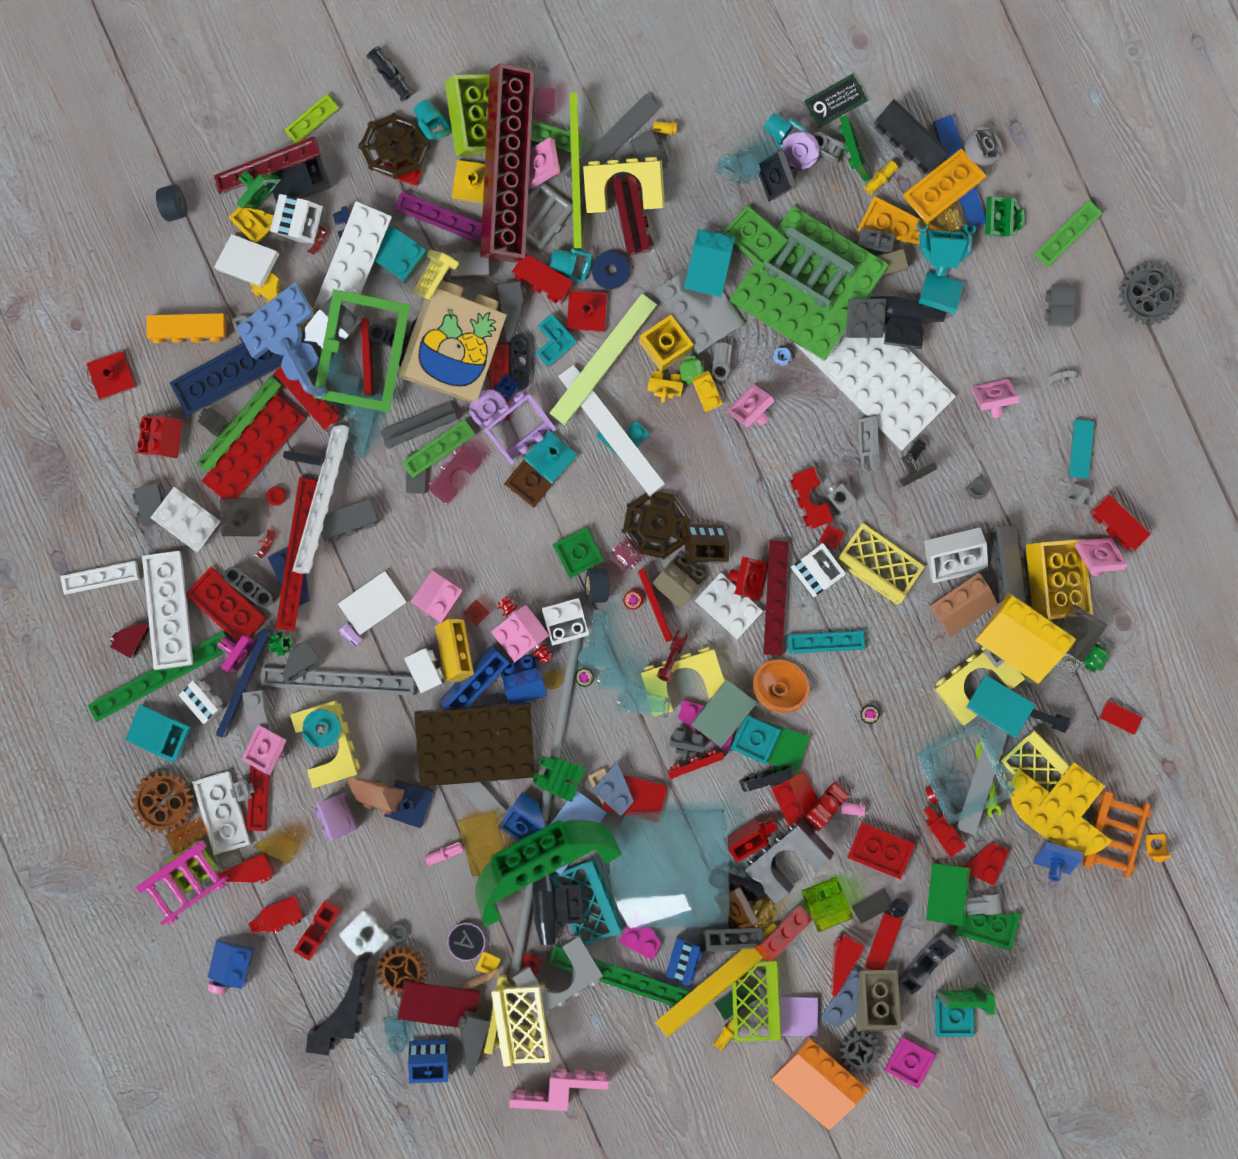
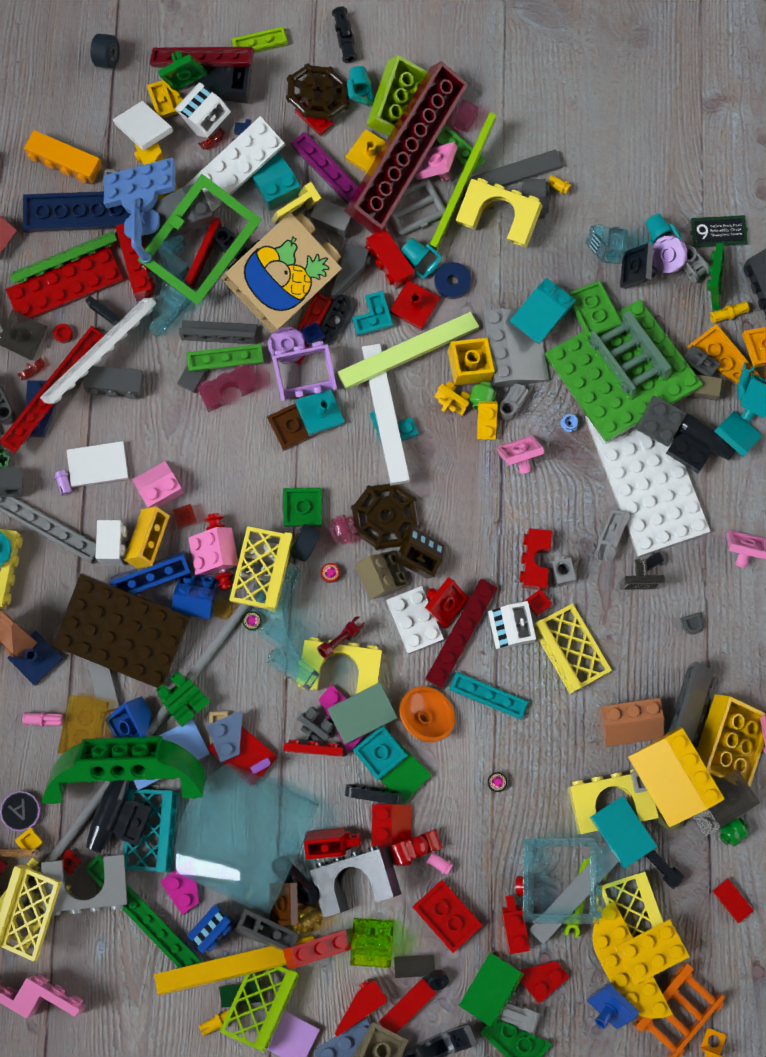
camera: 25 degrees right, 10 degrees down
(213, 421) = (42, 244): clear smoke brick -> none
(588, 624) = (278, 573): none -> light yellow fence
(631, 215) = (493, 241): dark red brick -> none
(655, 605) = (348, 586): red tile -> none
(657, 802) = (260, 766): none -> medium lavender tile
(956, 555) = (646, 673): white slope -> none

